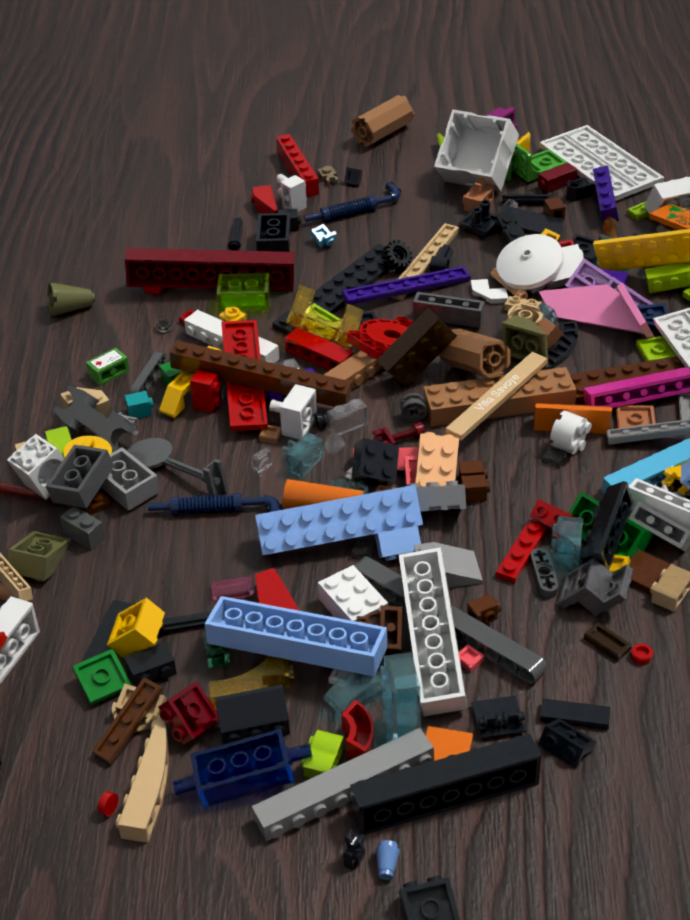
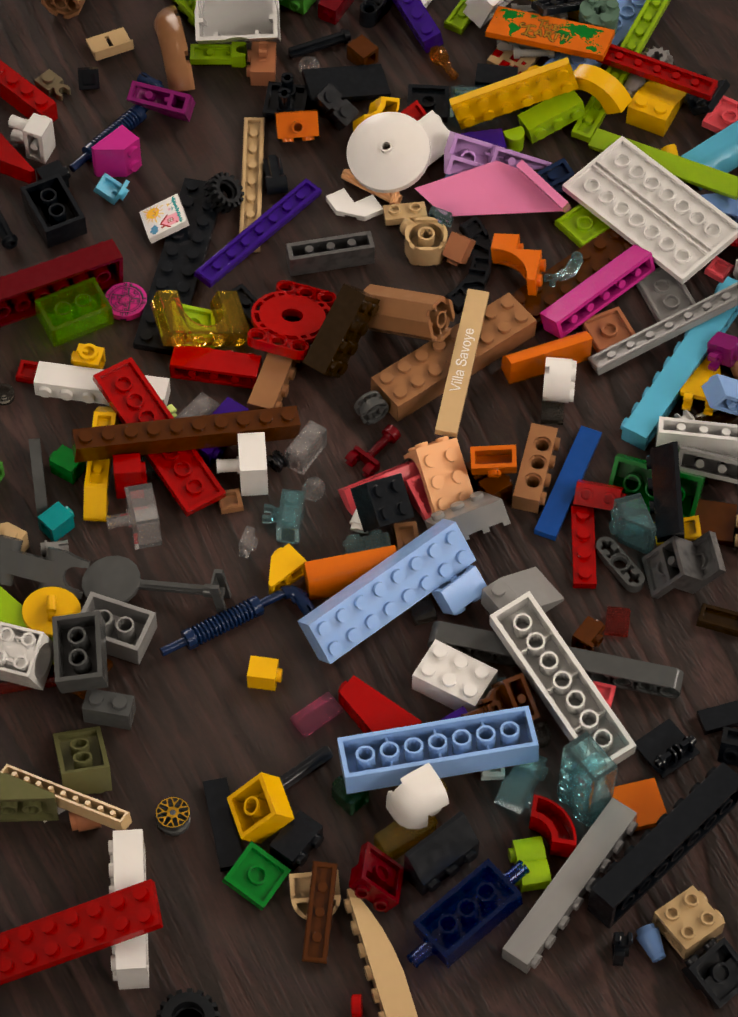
camera: 30 degrees left, 15 degrees up
(74, 616) = (173, 817): none -> dark grey wheel
(195, 417) = (140, 516): none -> clear brick
(210, 545) = (263, 673): none -> yellow brick
(254, 661) = (417, 798): none -> white brick
(273, 484) = (285, 568): none -> yellow slope
(282, 298) = (126, 300): none -> dark pink tile
(338, 215) = (117, 154): none -> dark pink slope
(345, 260) = (164, 218): none -> white tile
(377, 164) = (119, 40): none -> tan piece
(392, 197) = (162, 100): none -> magenta slope
(420, 170) = (174, 49): none -> medium nougat brick
(429, 853) = (688, 921): none -> tan brick
(450, 186) = (219, 54): none -> lime plate
(477, 234) = (297, 125): none -> orange brick
(478, 460) = (493, 460): none -> orange brick
(515, 485) = (539, 438): none -> medium nougat brick
(515, 610) = (617, 621): none -> clear red slope
(524, 337) = (447, 271): olive slope -> none
(552, 495) = (565, 485): none -> blue tile
(593, 355) = (529, 263): none -> orange arch
(622, 371) = (570, 270): none -> clear light blue arm
(636, 283) = (514, 138): none -> lime brick

